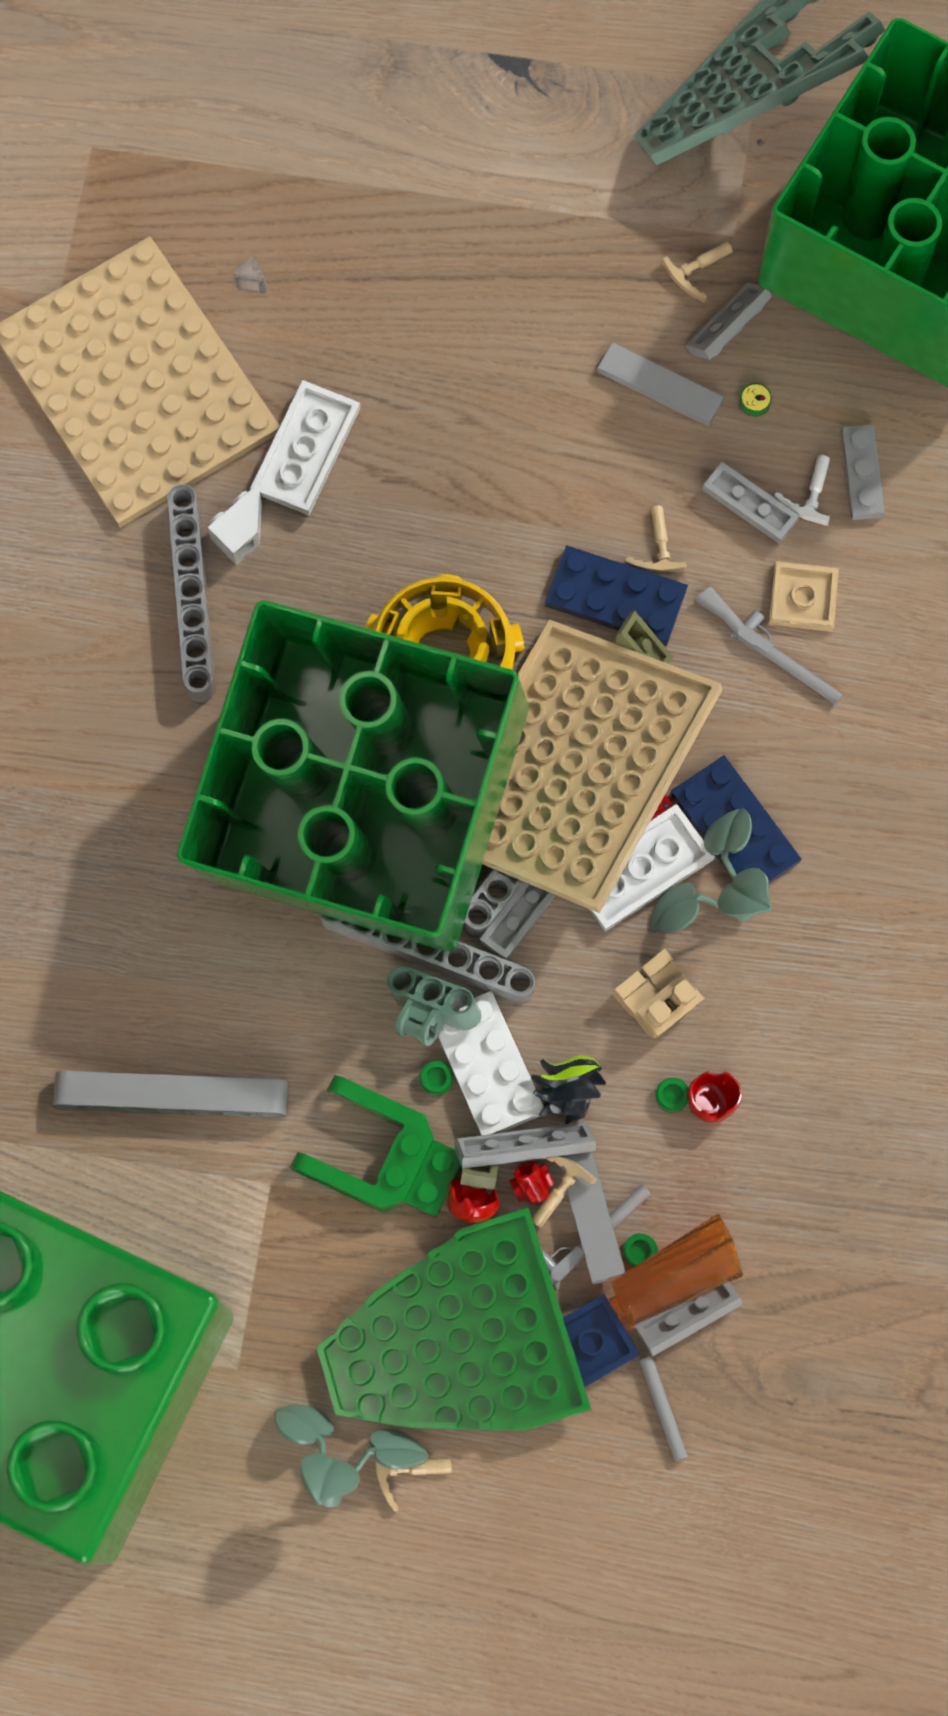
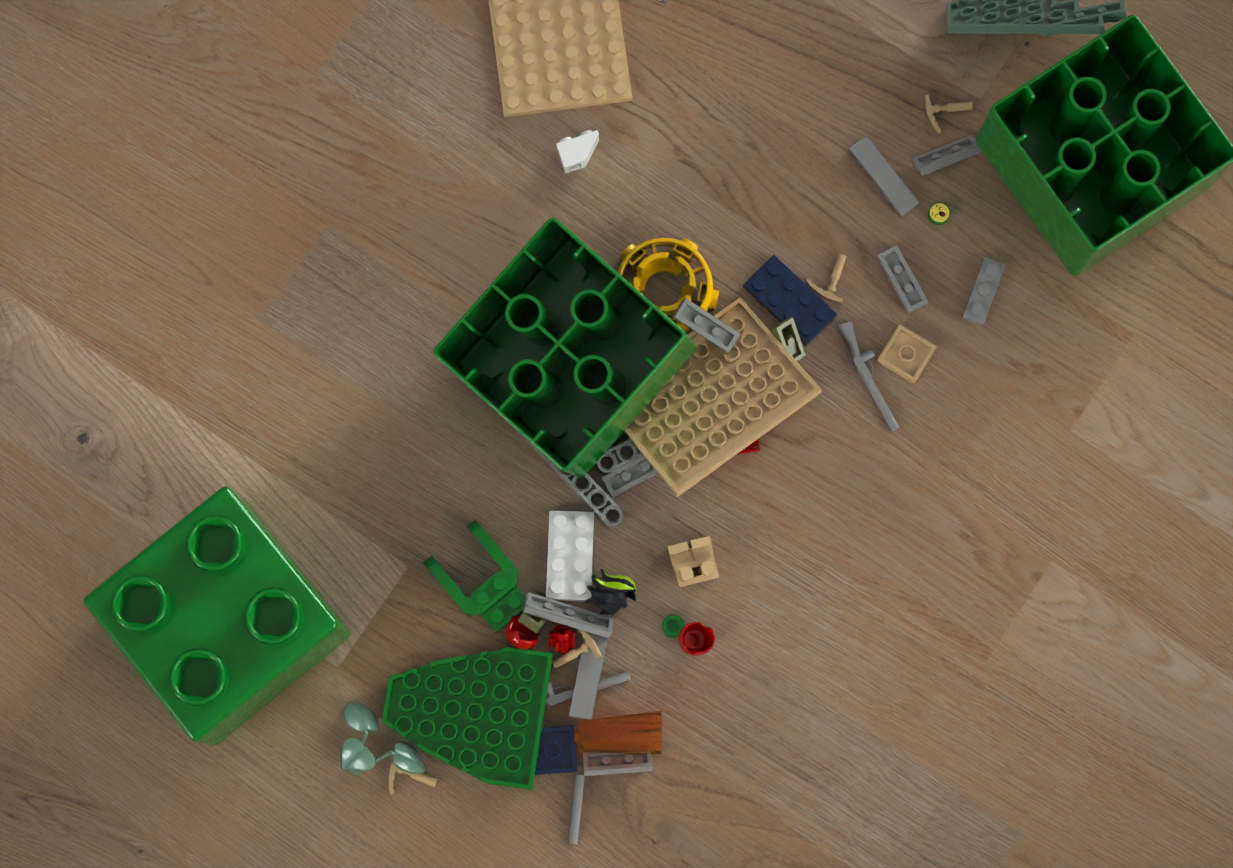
camera: 25 degrees right, 5 degrees up
(170, 1094) = (373, 485): light grey beam -> none
(191, 578) = (528, 169): light grey beam -> none
(306, 447) = (641, 118): white plate -> none
(426, 1018) = (545, 511): sand green beam -> none
(436, 1078) = (536, 549): green tile -> none
(534, 671) = (706, 325): none -> light grey plate
(638, 1249) = (608, 708): green tile -> none
(663, 858) = (735, 479): white plate -> none
(721, 790) = (792, 479): dark blue plate -> none
(741, 899) = (768, 527): sand green plant -> none
(808, 512) = (950, 286): white piece -> none

